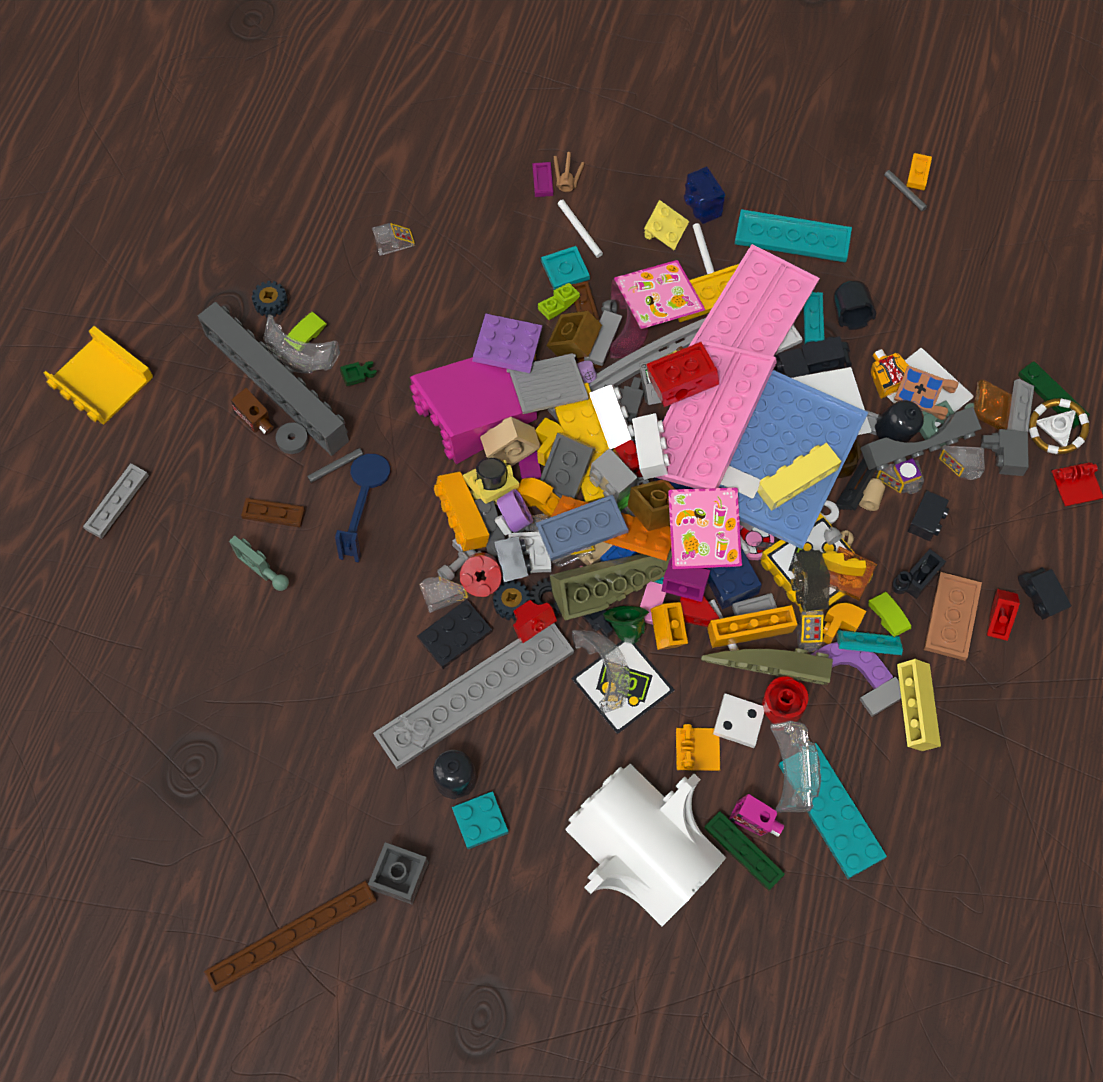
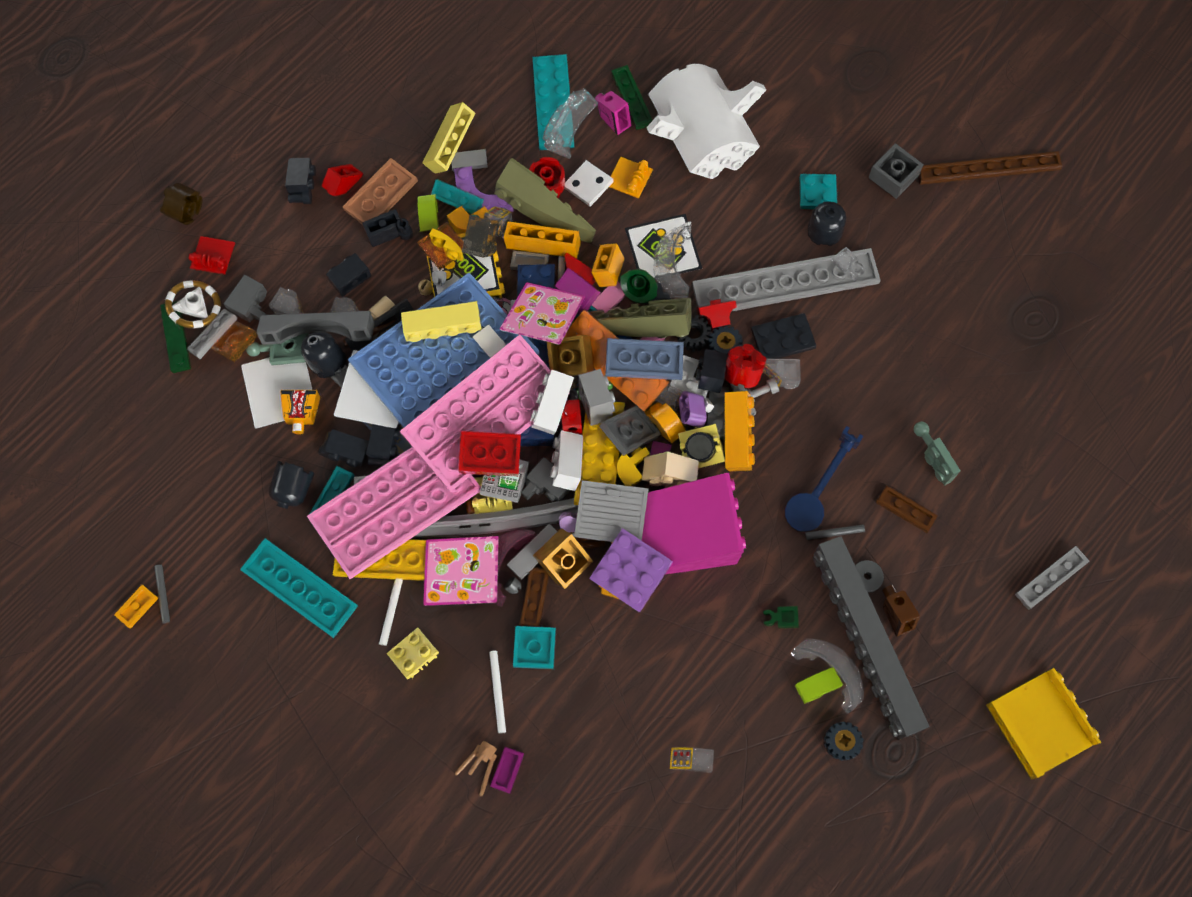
camera: 155 degrees left, 5 degrees up
(562, 299) = (557, 613): lime slope -> none
(704, 195) = (359, 662): clear blue piece -> none
(907, 471) = (344, 304): tile -> none
(924, 390) = (286, 373): nougat flag -> none

